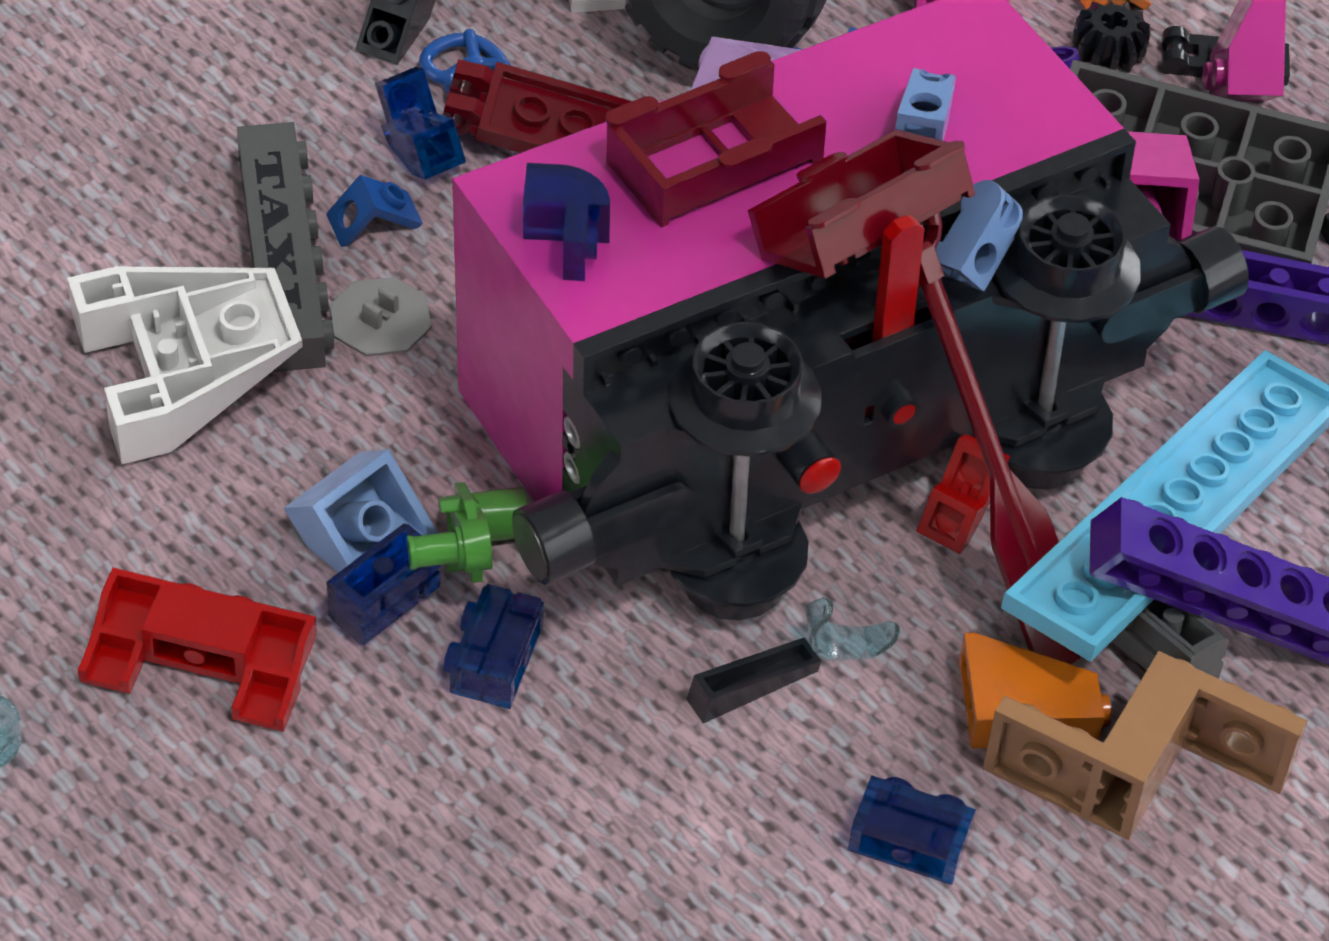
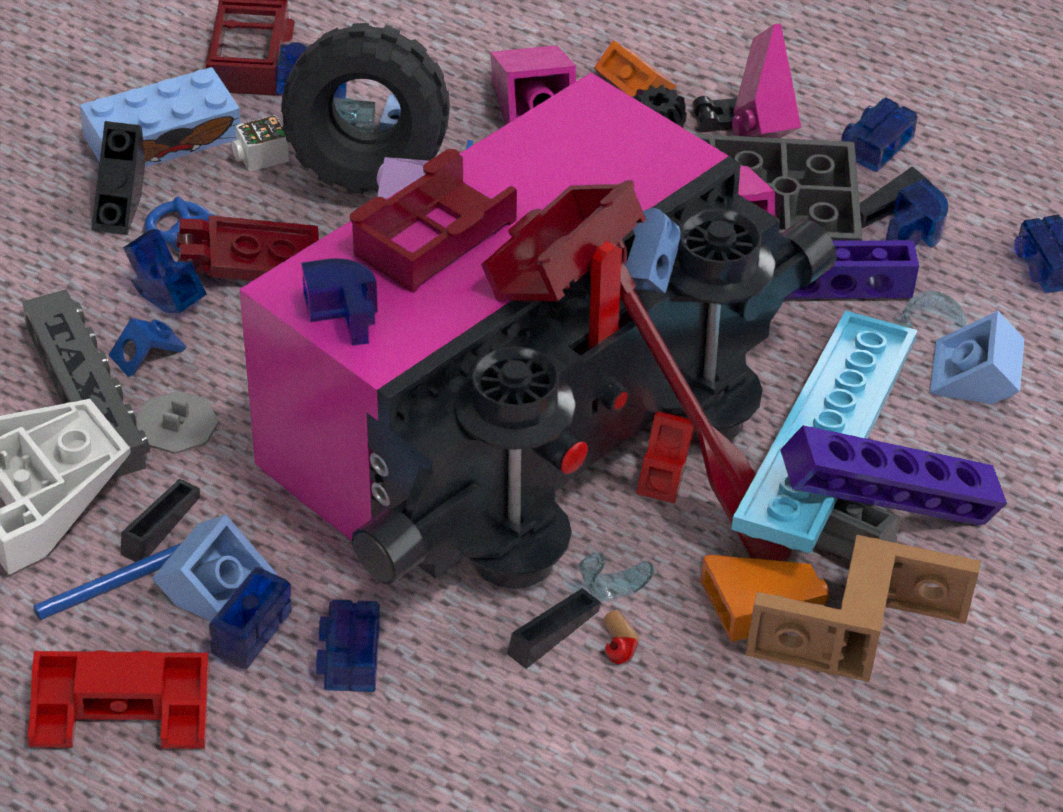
camera: 15 degrees left, 5 degrees down
(227, 501) = (103, 584): none -> blue piece
(317, 436) = (158, 520): none -> black piece
(472, 525) = (307, 562): bright green piece -> none
(836, 714) = (624, 638): none -> arm
(912, 828) = (712, 709): clear blue brick -> none
(926, 104) = (584, 163): medium blue leg -> none

